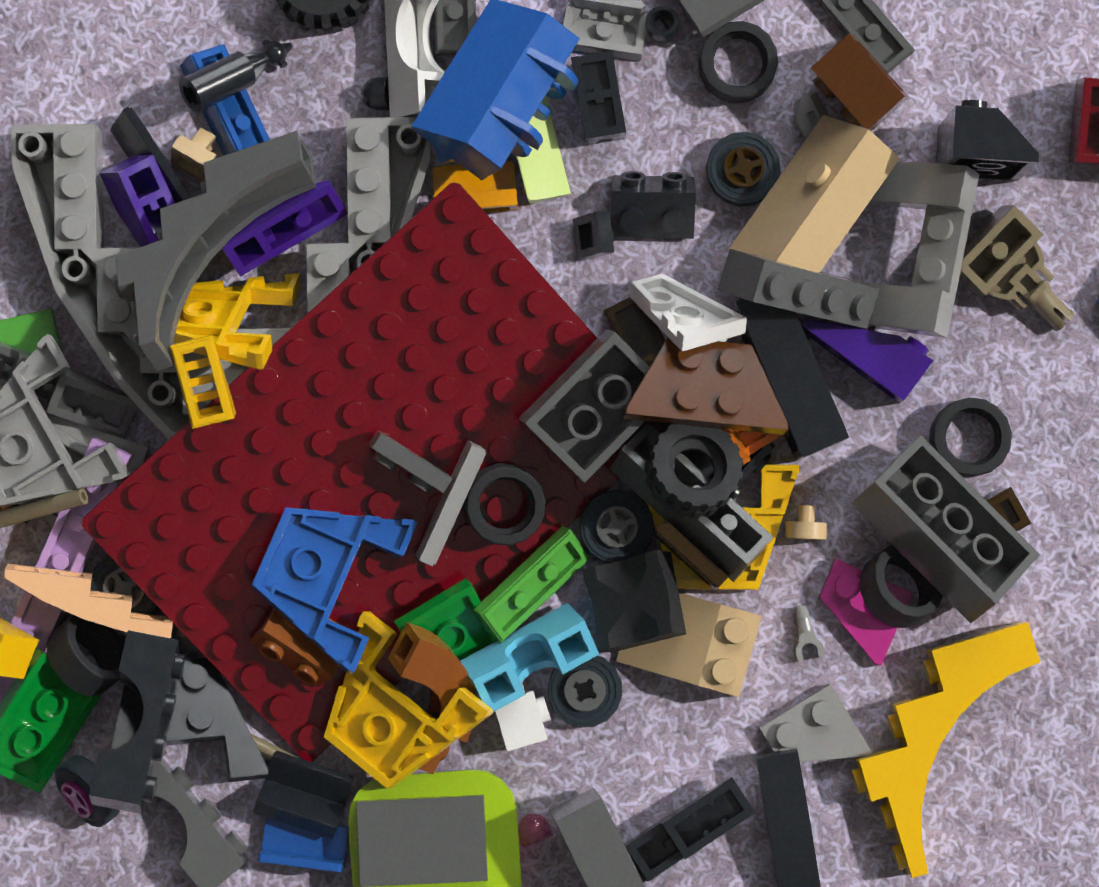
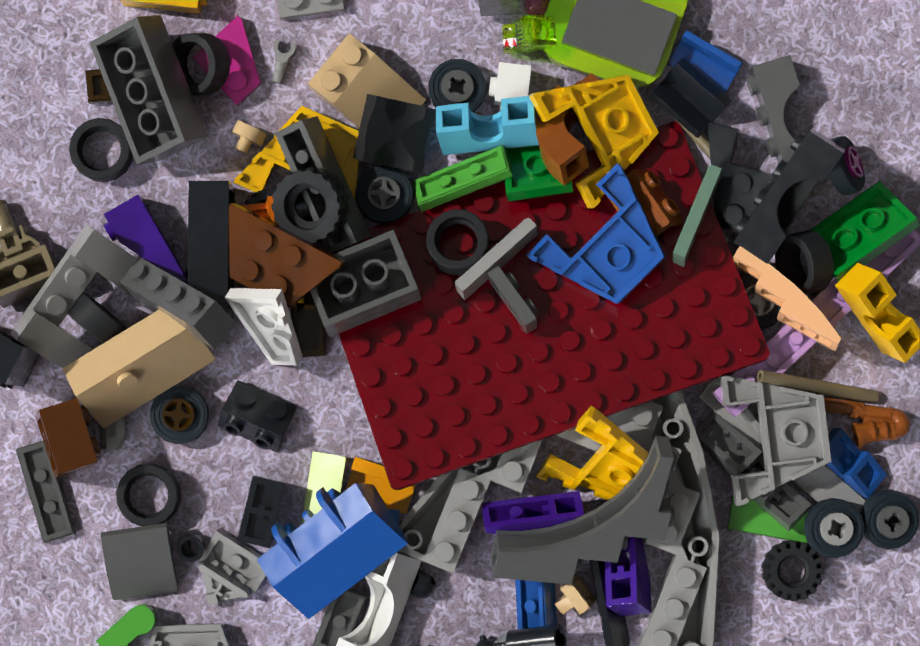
camera: 155 degrees left, 0 degrees up
(210, 415) = (641, 391): yellow slope -> none
(236, 654) = (696, 215): none -> sand green tile
(529, 785) = (525, 34): none -> clear neon green leg
(593, 235) = (309, 412): black plate -> none
(690, 555) = (339, 147): dark brown tile -> none
(885, 234) = (95, 318): none -> black tyre

